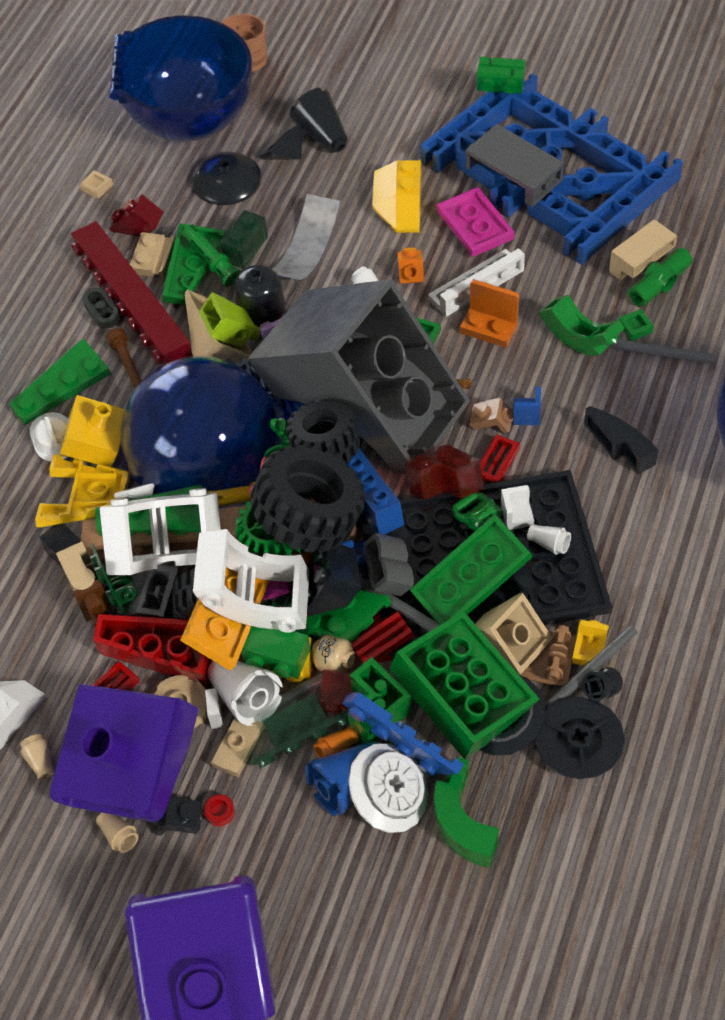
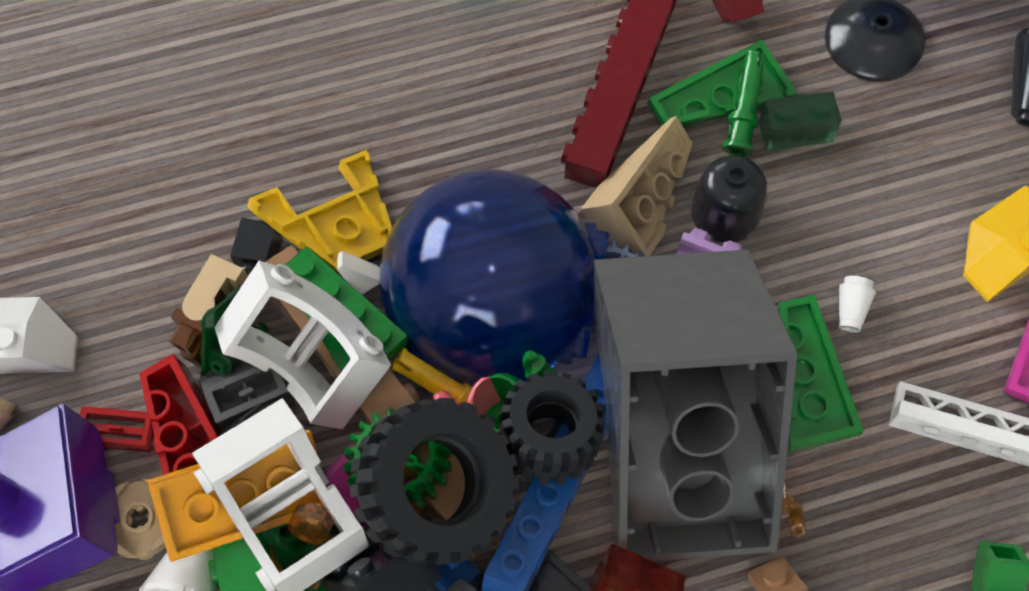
camera: 50 degrees right, 10 degrees up
(48, 434) = (393, 130): white piece -> none
(63, 380) = (470, 87): green wing -> none
(93, 432) = (409, 164): yellow brick -> none
(101, 307) = (585, 52): pearl dark grey plate -> none
(118, 341) = (558, 100): reddish brown piece -> none
(152, 254) = (702, 44): tan plate -> none
(213, 708) = (148, 560): white tile -> none
(228, 321) = (661, 193): lime torso -> none
(277, 590) = (311, 525): none -> clear orange plate
(286, 147) = (976, 65): black slope -> none
(310, 238) = (856, 191): flat silver sticker -> none
(410, 265) = (924, 329): orange bracket -> none
(491, 314) = (926, 483): orange bracket -> none

